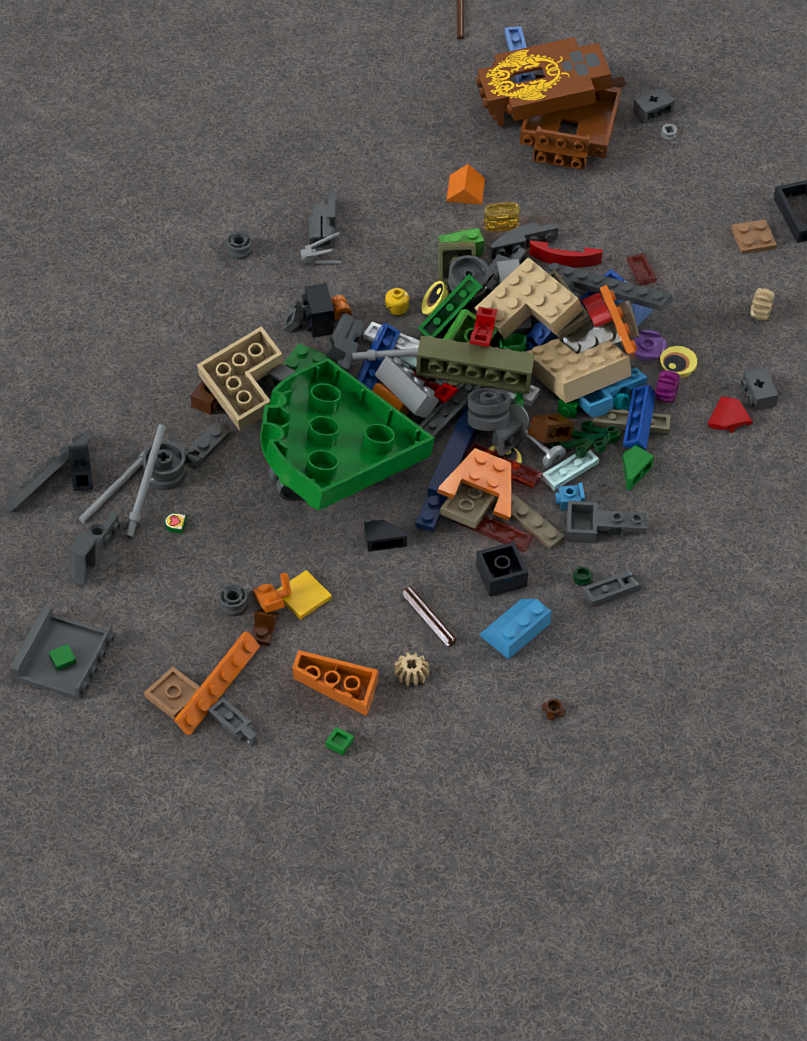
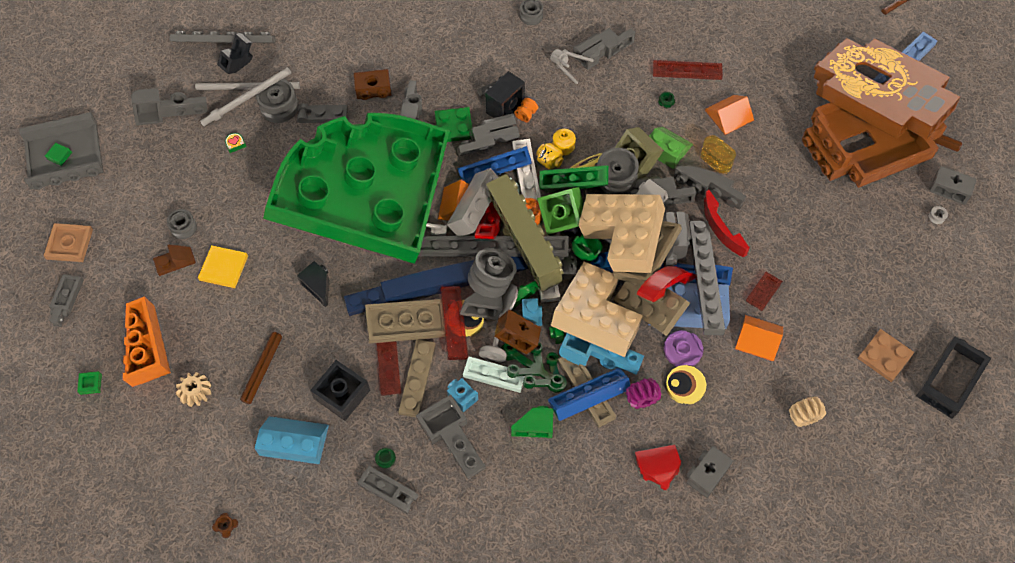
camera: 55 degrees right, 10 degrees up
(217, 683) = (94, 264): orange plate -> none
(234, 373) = (385, 81): tan brick -> none
(270, 598) = (197, 245): orange plate -> none
(372, 355) = (487, 159): light grey bar -> none
(397, 187) = (691, 70): none -> clear red tile
(402, 318) = (549, 156): none -> yellow head
(415, 216) = (666, 96): none -> dark green plate
(483, 327) = (555, 215): red slope -> none
(486, 474) = (425, 313): orange wing -> none
(537, 407) = (532, 311): none -> dark azure brick
(616, 314) = (655, 308): orange plate -> none
(621, 401) = (597, 368): teal tile -> none
(684, 295) = (759, 338): none -> orange slope

